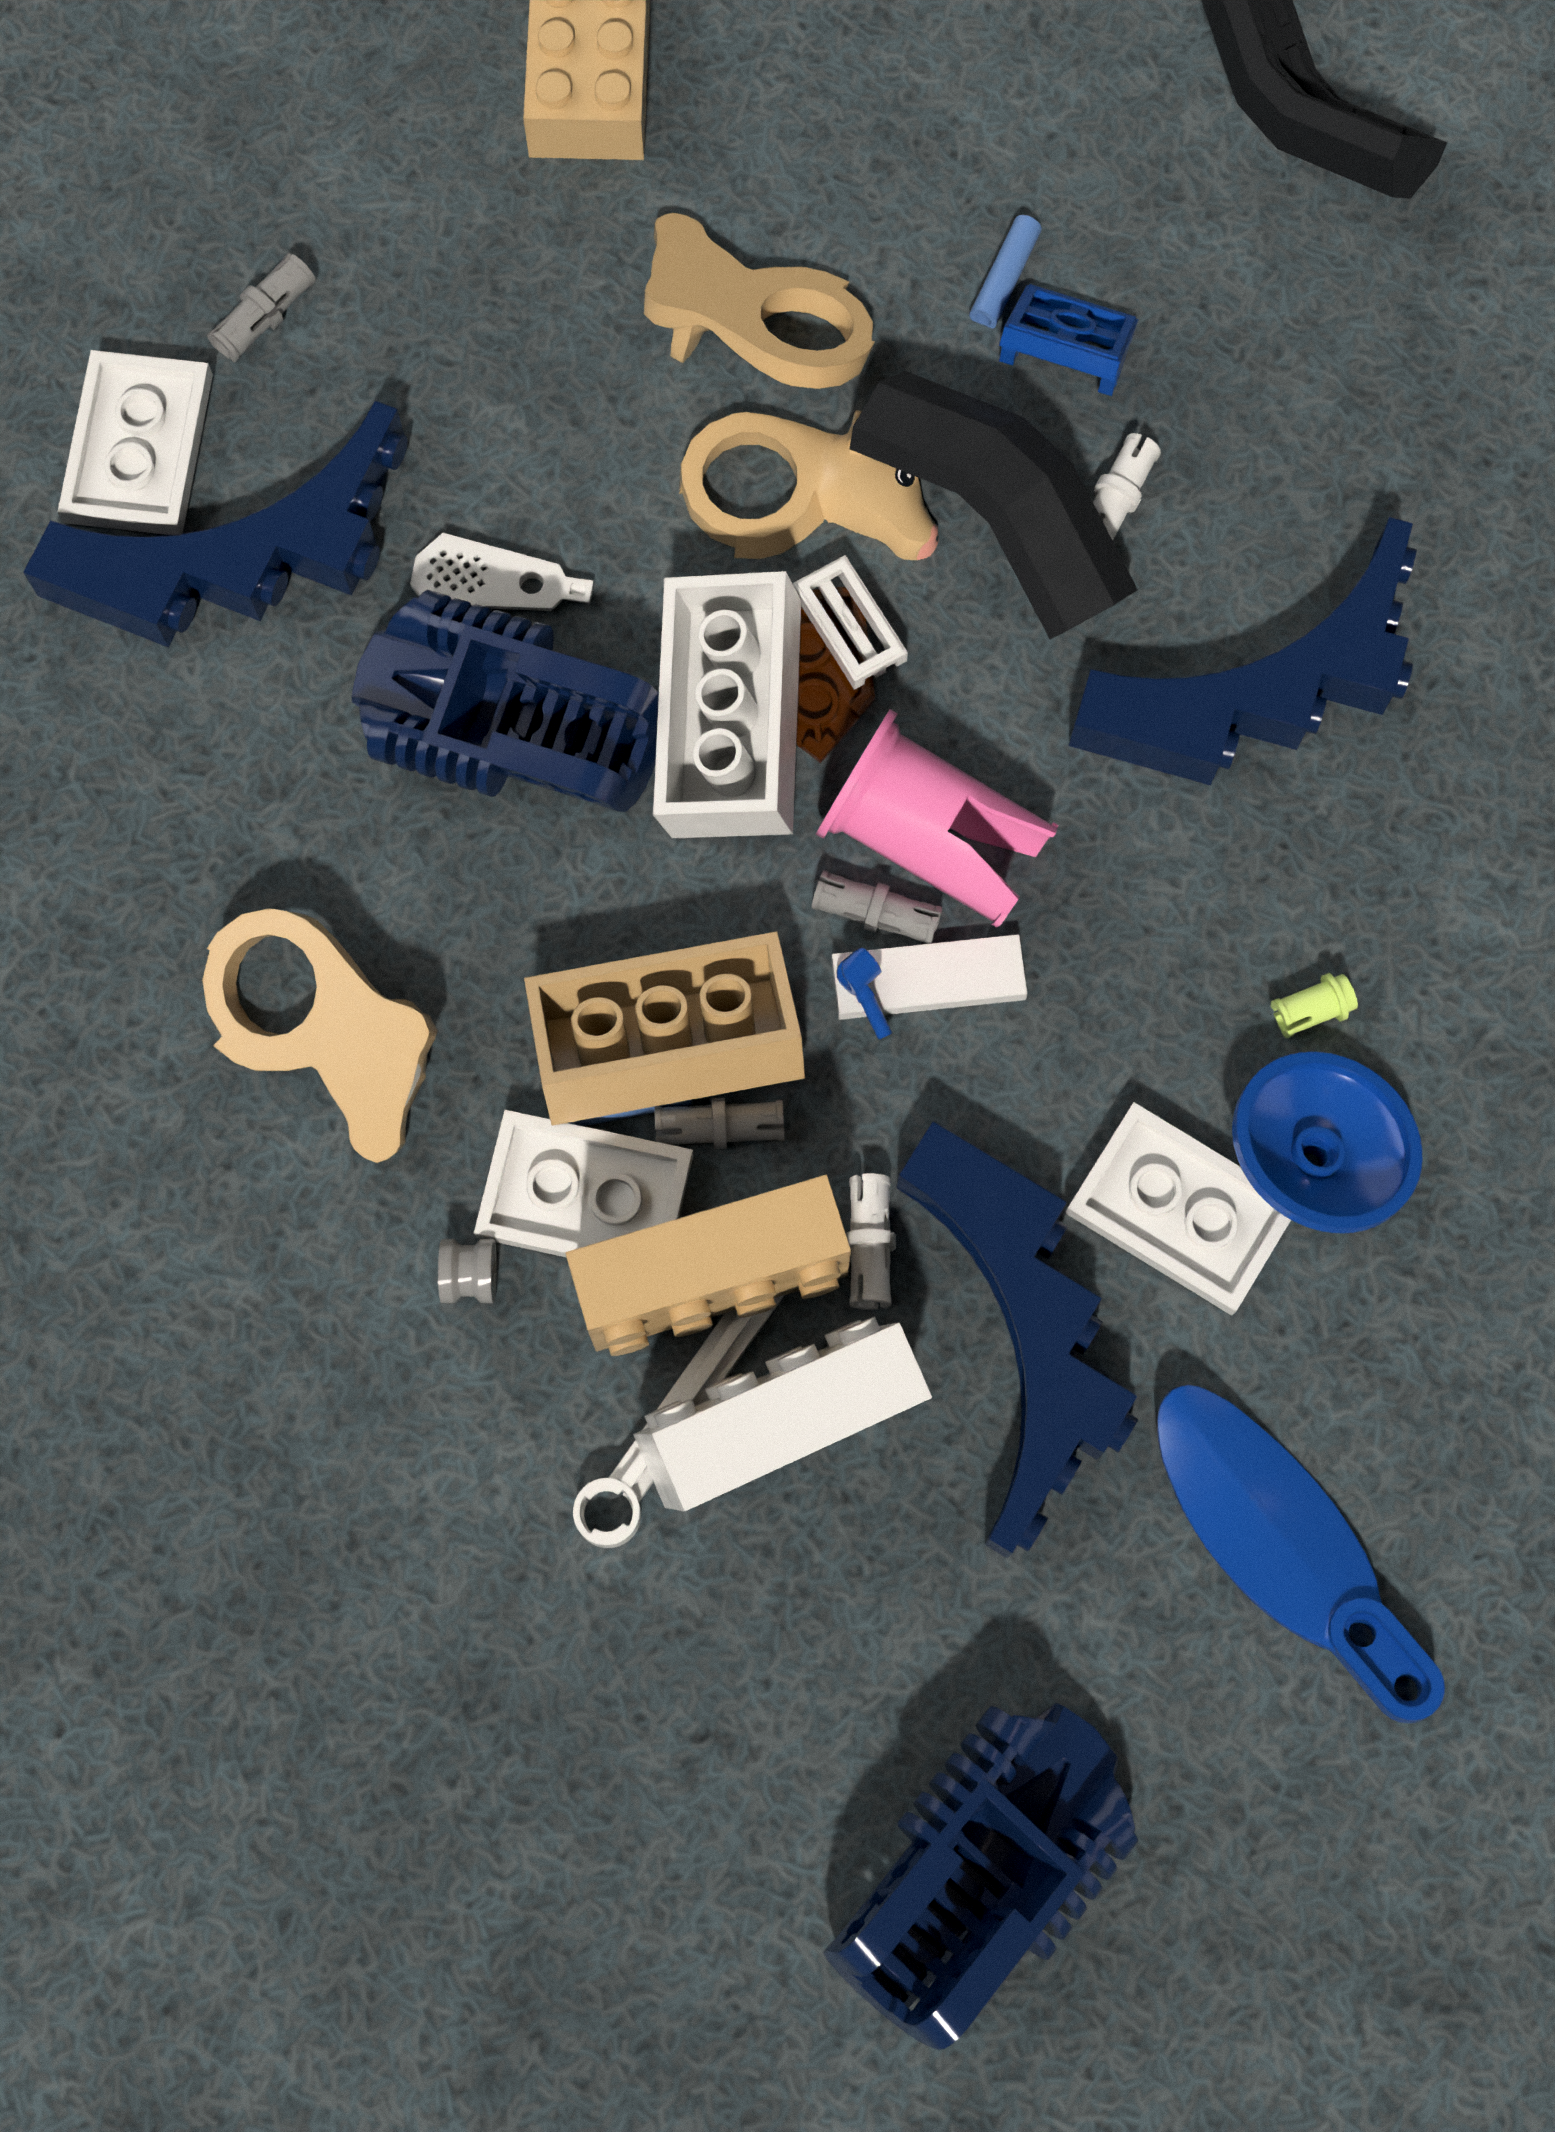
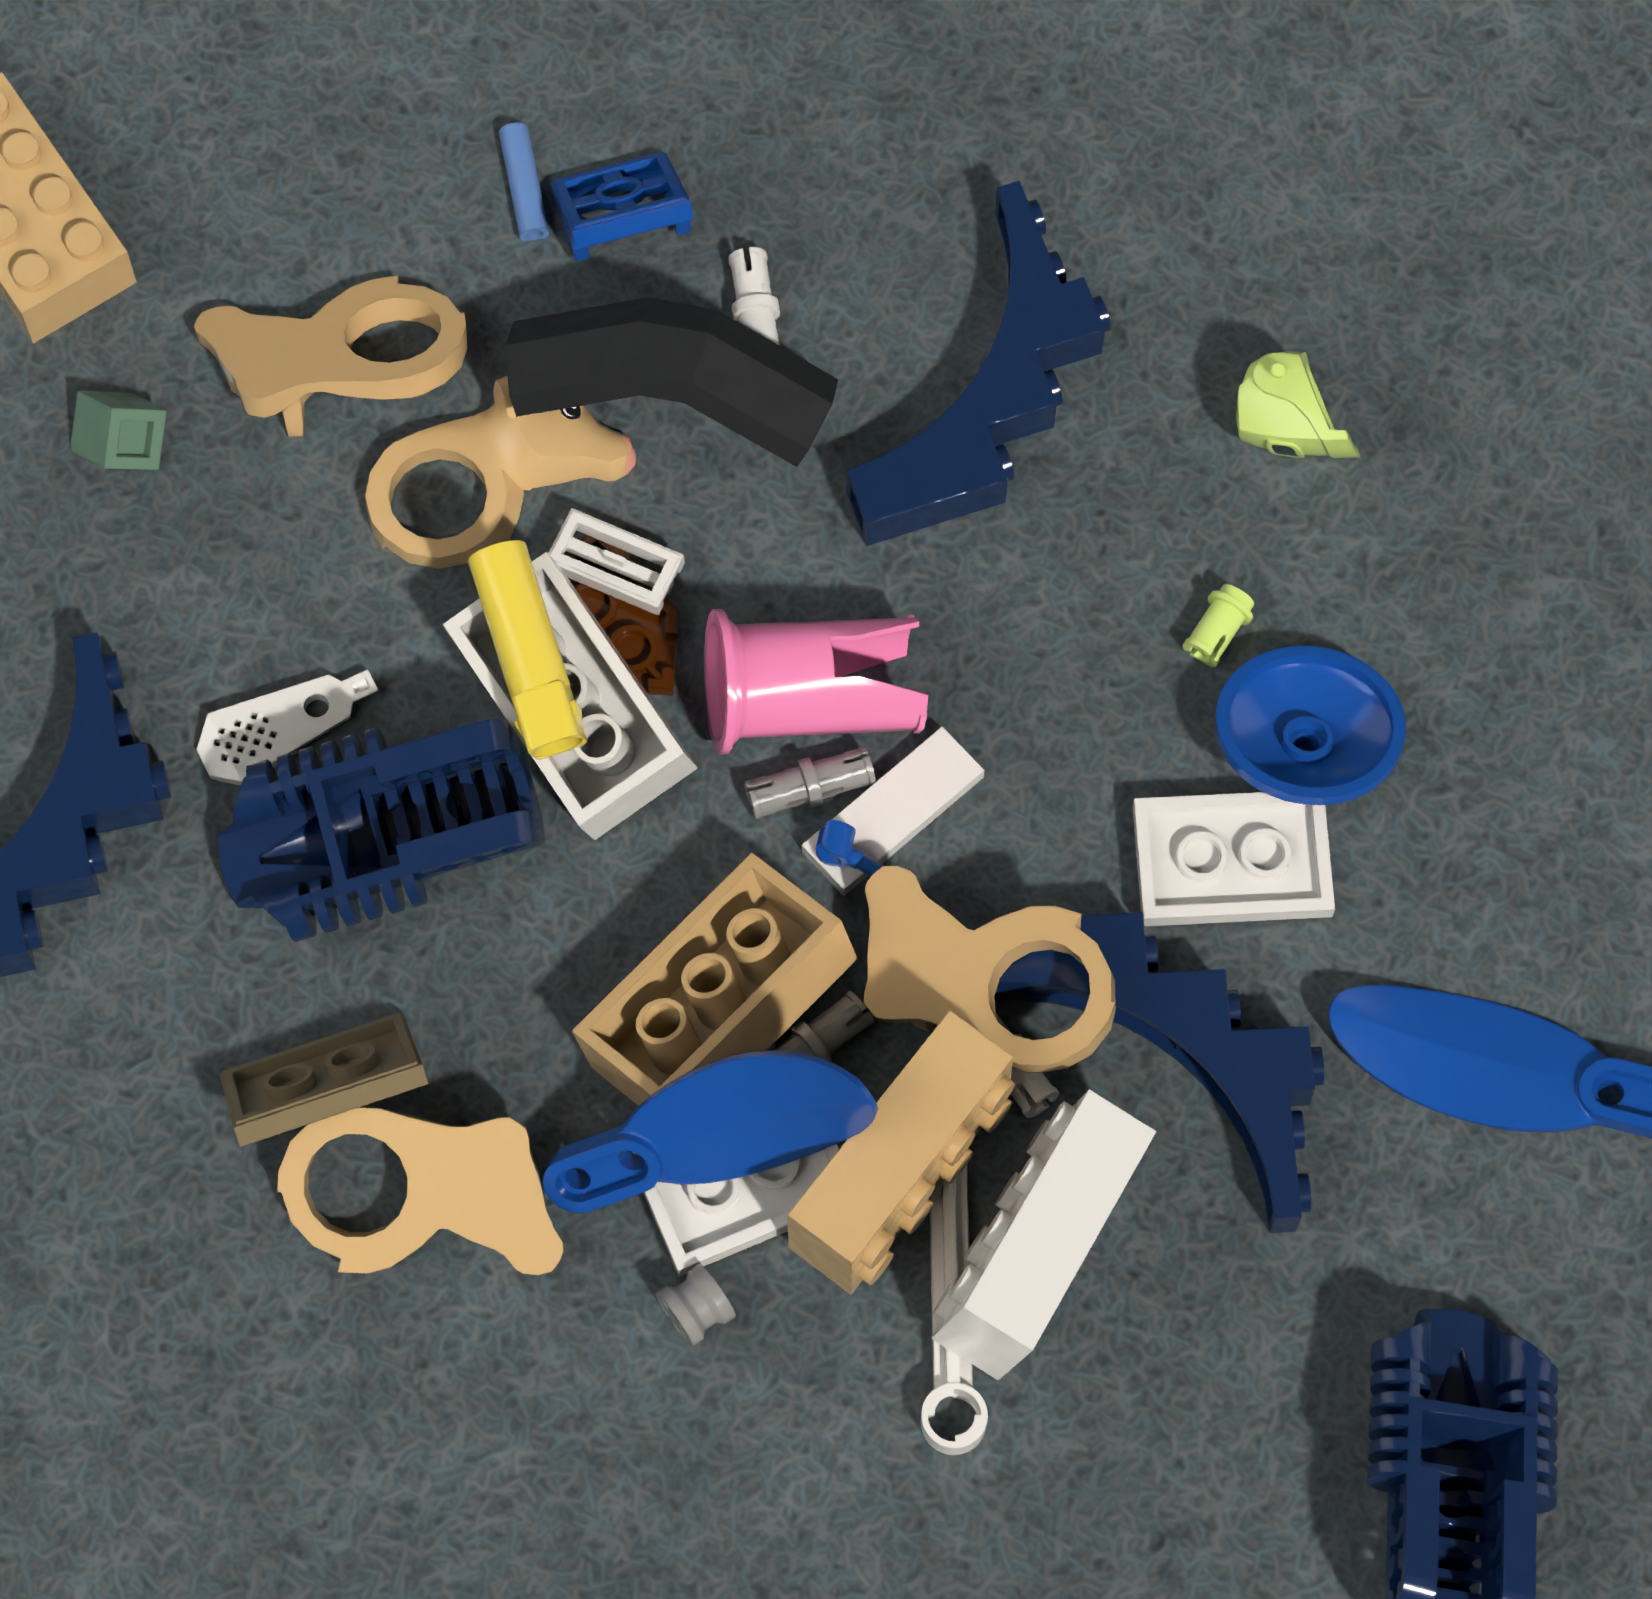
camera: 35 degrees left, 5 degrees down
(307, 882) = (322, 1078): none -> dark tan tile
(538, 264) = (118, 430): none -> sand green panel
(569, 1134) = (714, 1128): none -> blue plant
(709, 641) = (527, 649): none -> light yellow piece
(858, 1134) = (933, 965): none -> tan animal
(1503, 863) = (1285, 411): none -> yellowish green helmet

